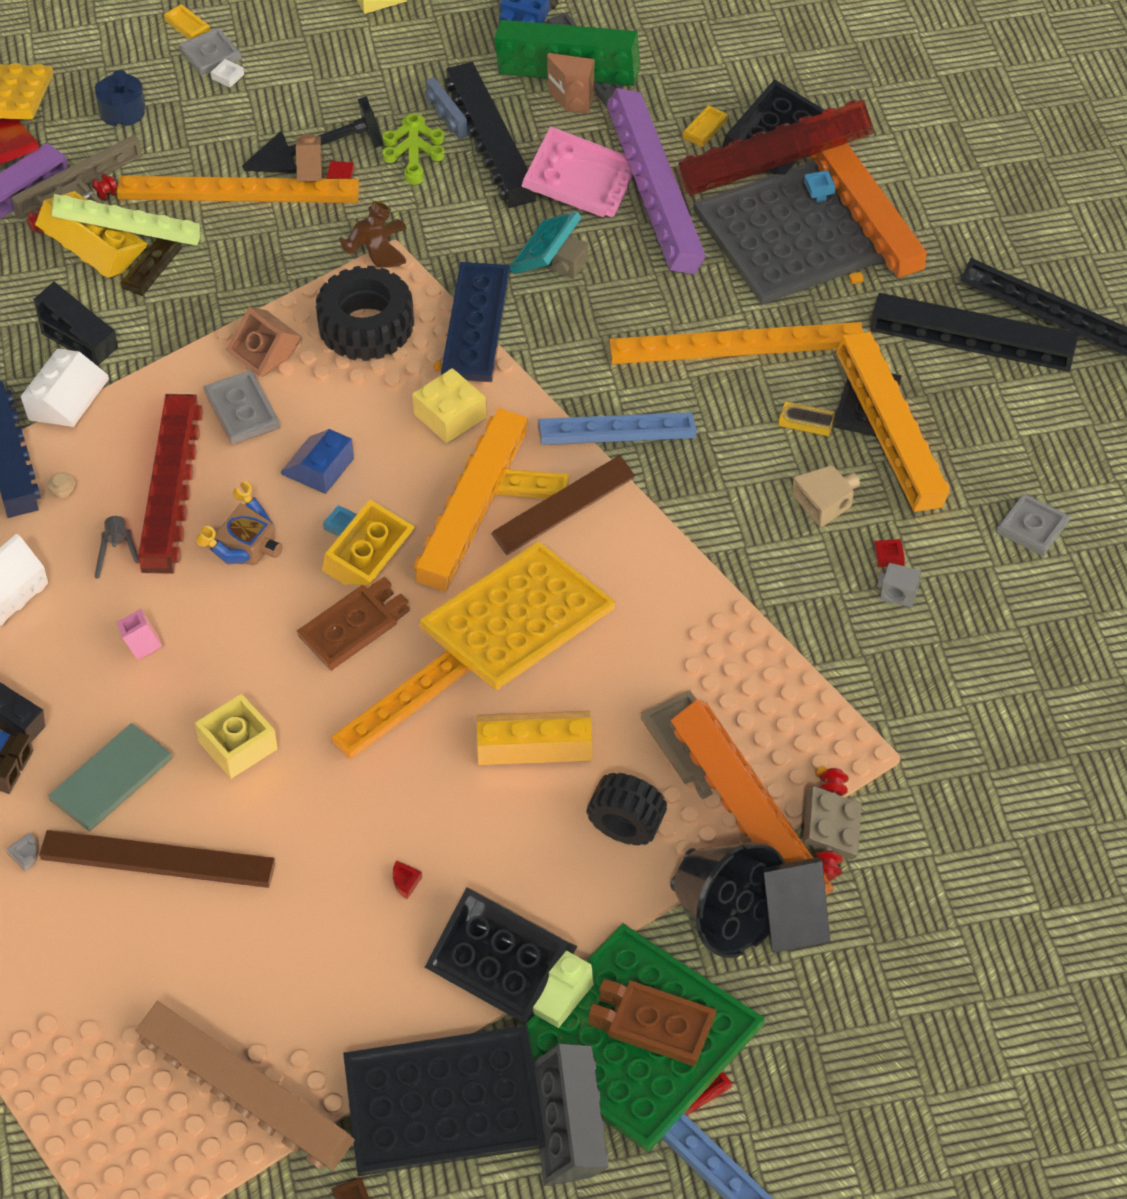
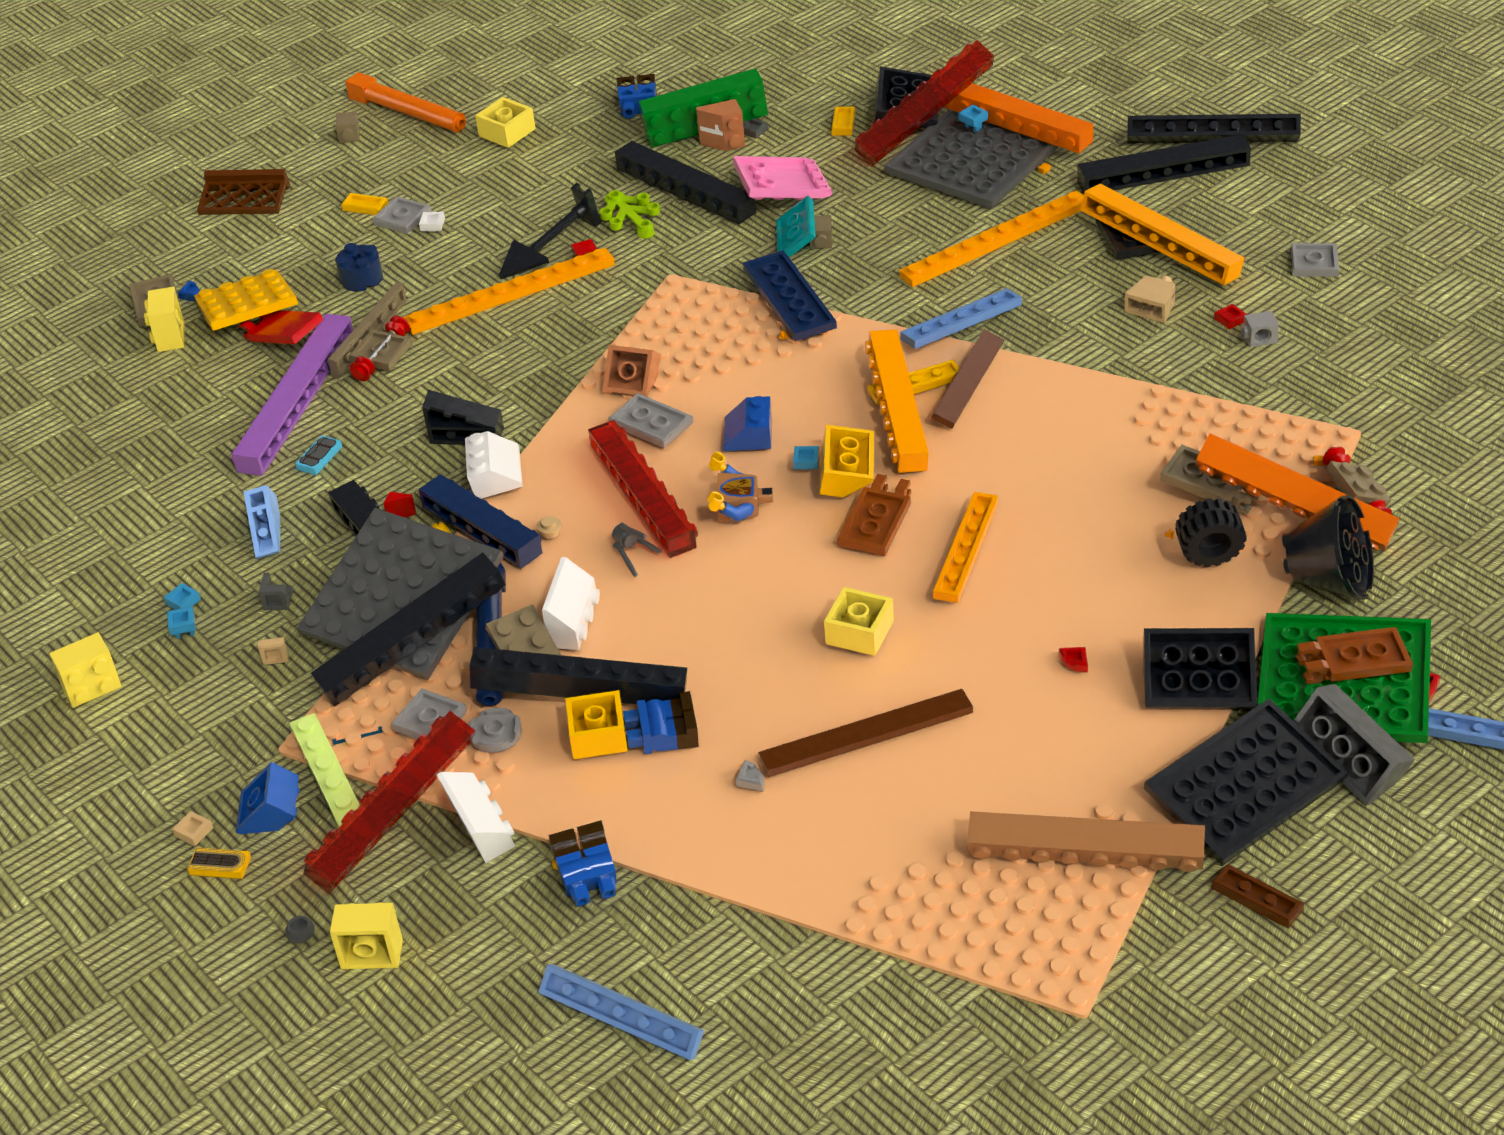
camera: 25 degrees left, 10 degrees down
(102, 247) = (418, 358): yellow slope -> none
(110, 777) = (775, 697): sand green tile -> none
(125, 219) = (440, 335): yellowish green plate -> none
(139, 634) = (715, 590): bright pink brick -> none
(150, 266) = (483, 364): dark brown tile -> none
(309, 158) = (556, 245): medium nougat slope -> none
(365, 335) = (700, 319): black tyre -> none
(374, 235) = (657, 269): reddish brown animal -> none
(446, 108) = (634, 178): sand blue plate -> none
(449, 405) = (821, 351): light yellow brick -> none
(517, 615) = (1003, 456): yellow plate -> none
(534, 738) = (1090, 527): yellow slope -> none
(565, 988) = (1270, 666): yellowish green arch -> none
(655, 181) = (844, 162): medium lavender brick -> none
(796, 904) = (1388, 538): black tile -> none
(806, 418) = (1092, 262): tile -> none

